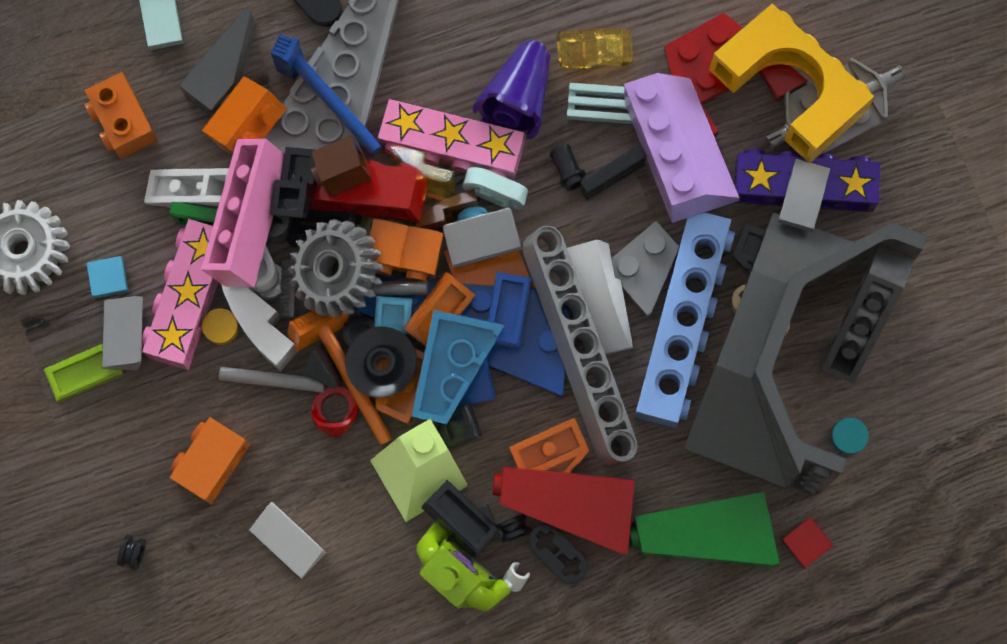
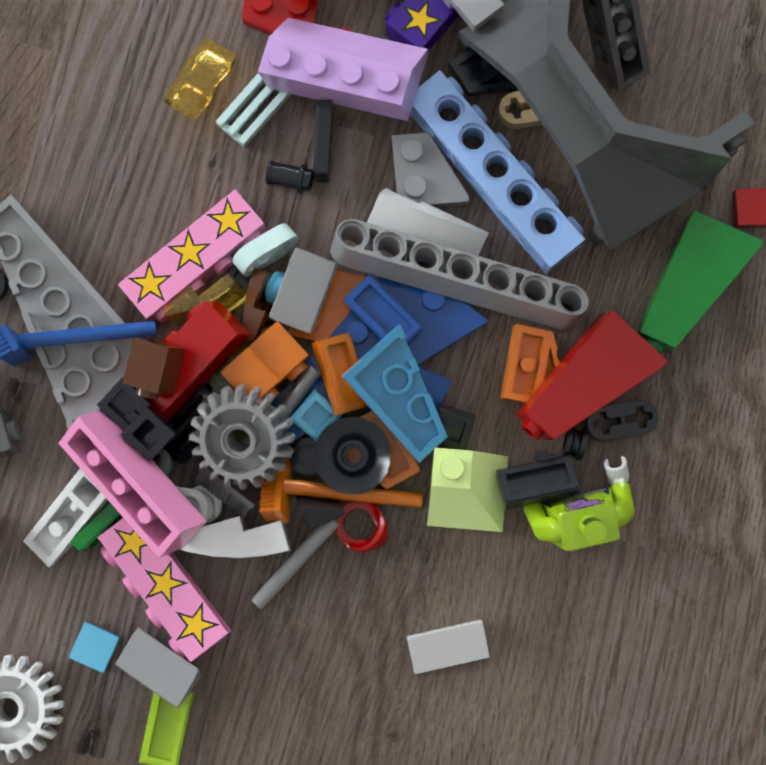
camera: 60 degrees left, 5 degrees up
(209, 460) = (329, 668): orange brick -> none
(220, 326) = (213, 576): yellow tile -> none
(245, 114) = (38, 423): orange brick -> none
(517, 90) = (192, 169): dark purple cone -> none
(849, 436) = (688, 109): teal tile -> none

